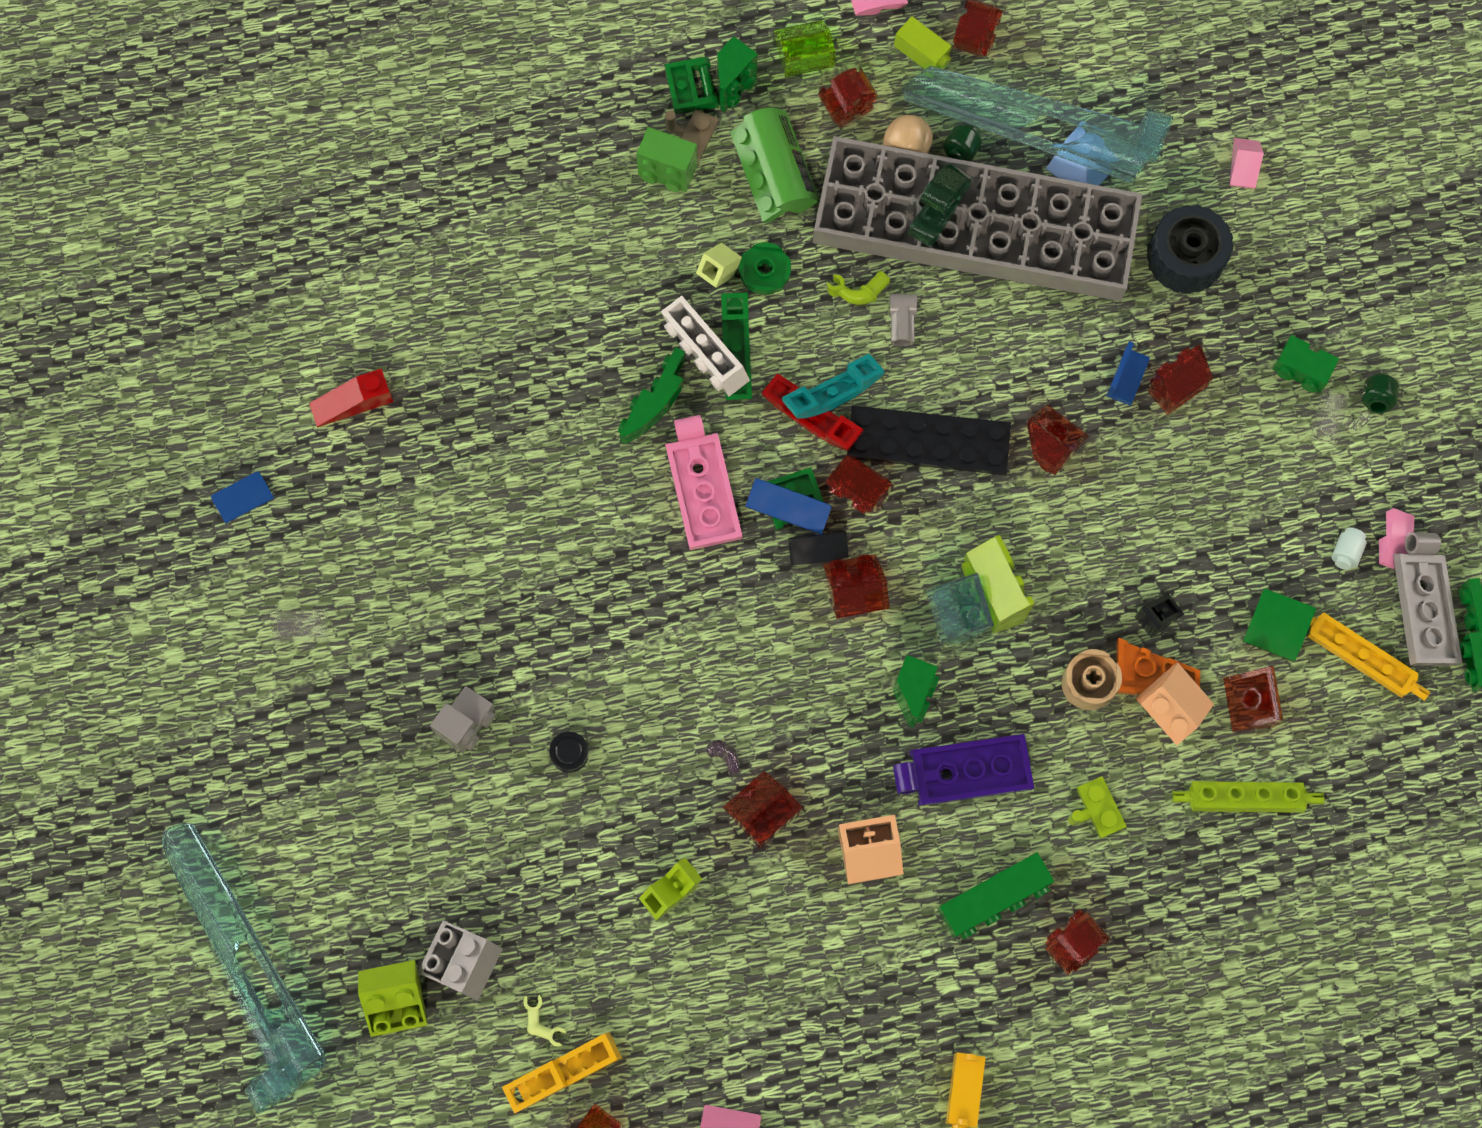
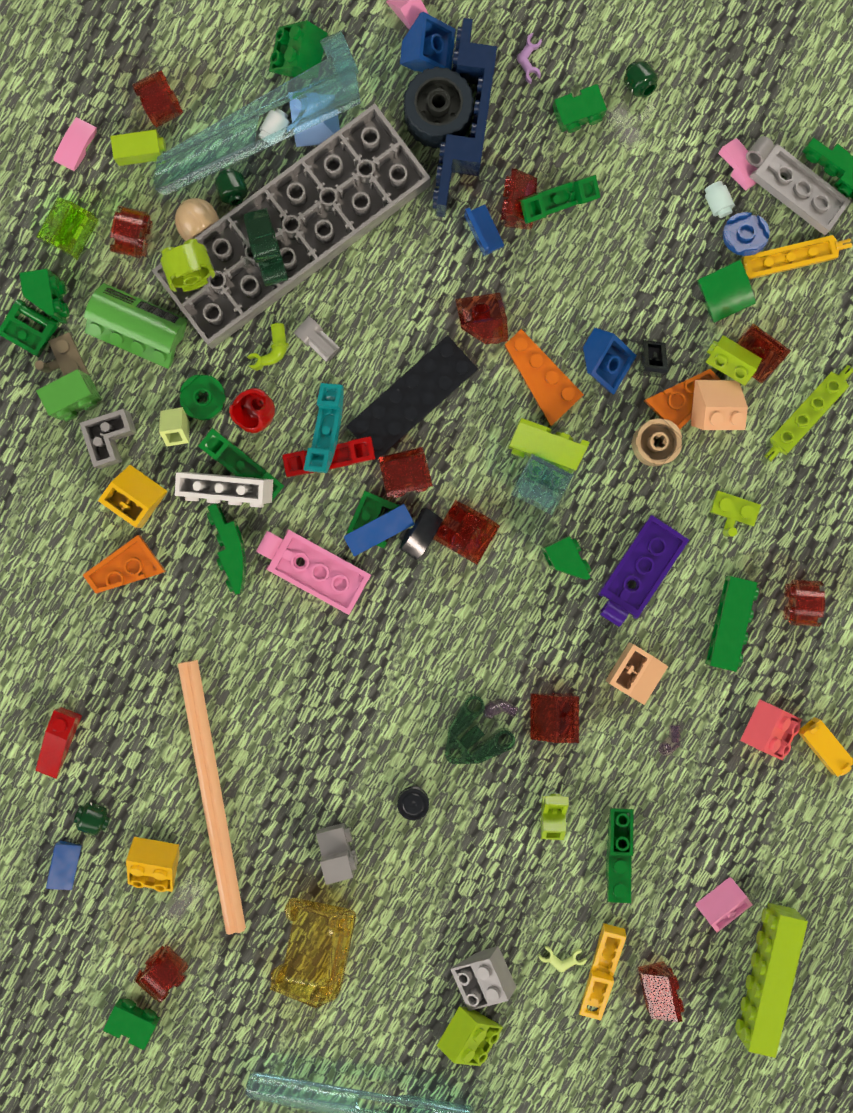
camera: 45 degrees left, 15 degrees up
(145, 670) = (132, 1022): none -> green brick
(217, 658) = (161, 973): none -> clear red brick
(307, 483) = (91, 818): none -> dark green head
(310, 570) = (152, 864): none -> yellow slope
(355, 783) = (314, 952): none -> clear yellow windscreen
(416, 572) = (211, 797): none -> light nougat axle
(558, 326) = (124, 566): none -> orange wing
(627, 282) = (133, 496): none -> yellow slope
(659, 213) = (101, 436): none -> light grey brick
(684, 729) = (486, 749): none -> clear green connector
(689, 985) = (619, 855): none -> green slope
(792, 315) = (250, 416): none -> red piece
(837, 943) = (671, 743): none -> arm
(864, 156) = (187, 266): none -> lime brick
(933, 1024) = (771, 730): none -> coral slope
(1048, 131) = (273, 122): none -> white brick
(1052, 537) = (547, 383): none -> orange wing
(1121, 574) = (607, 359): none -> blue slope
(1125, 98) = (297, 48): none -> green slope
(1172, 300) = (460, 153): none -> dark blue bracket
(1215, 411) = (559, 198): none -> green slope
(1226, 682) = (733, 360): none -> lime brick
(1234, 197) = (428, 44): none -> blue slope
(1301, 283) = (522, 58): none -> lavender arm
(1344, 598) = (746, 234): none -> tile

